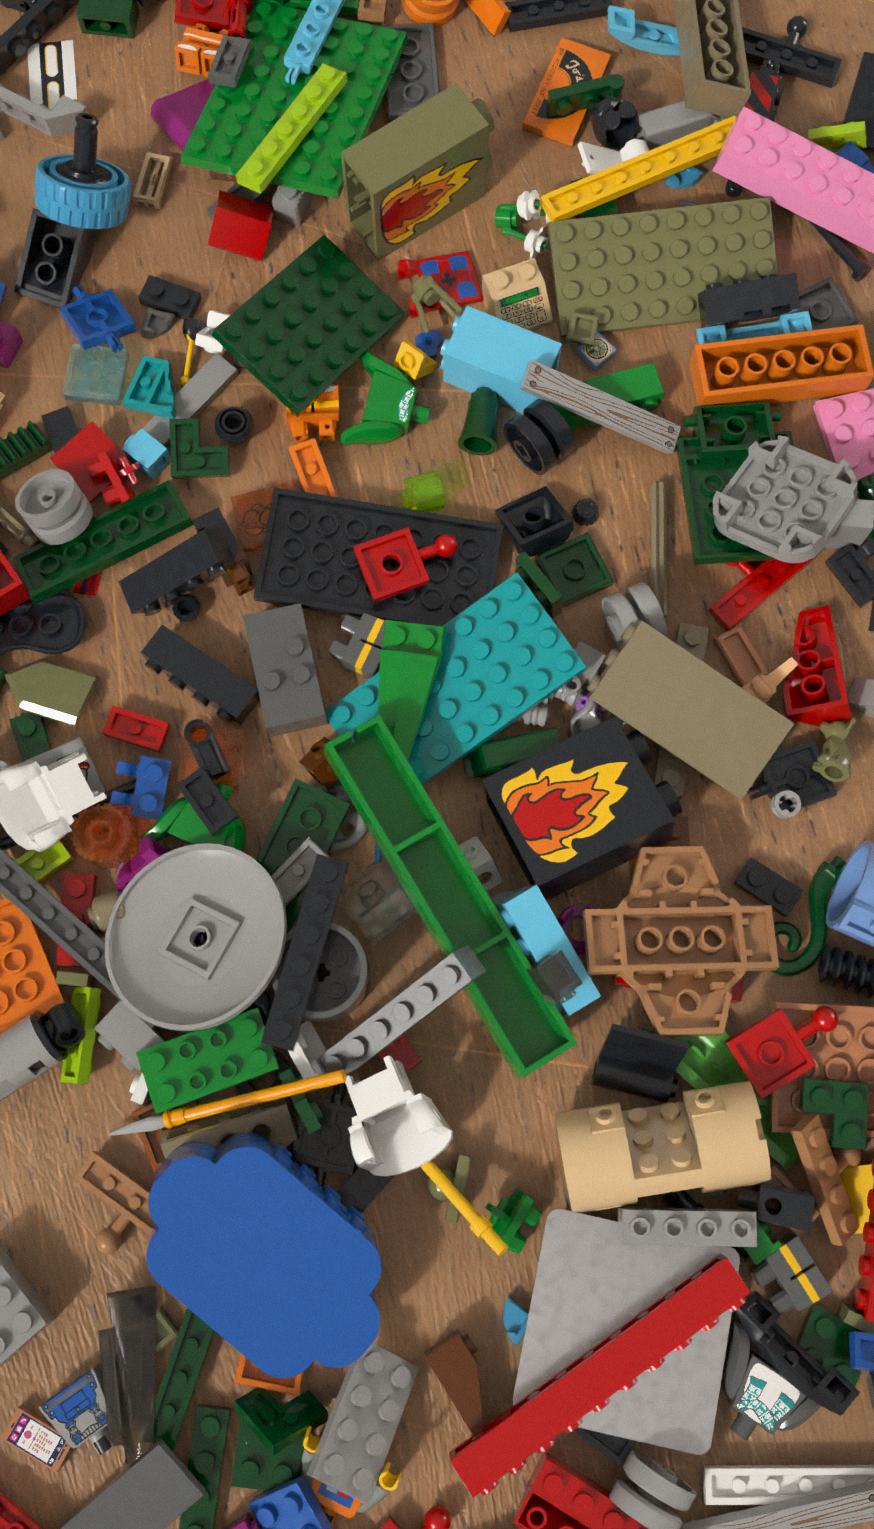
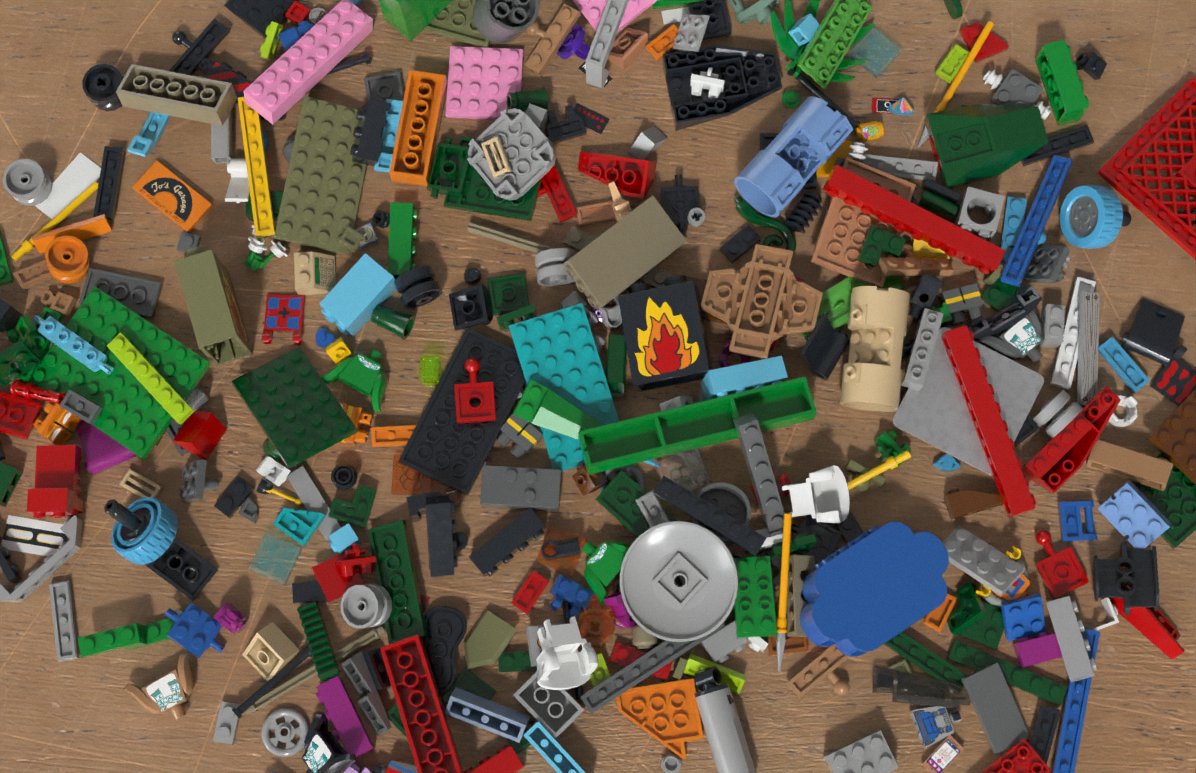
camera: 70 degrees left, 0 degrees up
(97, 319) = (237, 547): blue plate -> none
(116, 66) = (56, 482): none -> red brick
(172, 240) = (195, 481): none -> dark grey plate
(207, 801) = (595, 554): black plate -> none
(428, 293) = (293, 326): olive plant -> none
(508, 132) = (188, 241): none -> dark grey plate
(555, 977) = (765, 376): clear smoke brick -> none
(583, 94) = (186, 184): dark green plate -> none
(599, 407) = (412, 244): light grey tile -> none
(613, 122) = (211, 174): black hair -> none
(626, 360) = (381, 219): none -> black bush
(773, 1051) = (839, 269): red plate -> none
(775, 482) = (502, 171): none -> tan tile
(805, 1445) = (1053, 325): none -> light grey brick
(835, 757) = (678, 179): olive animal -> none

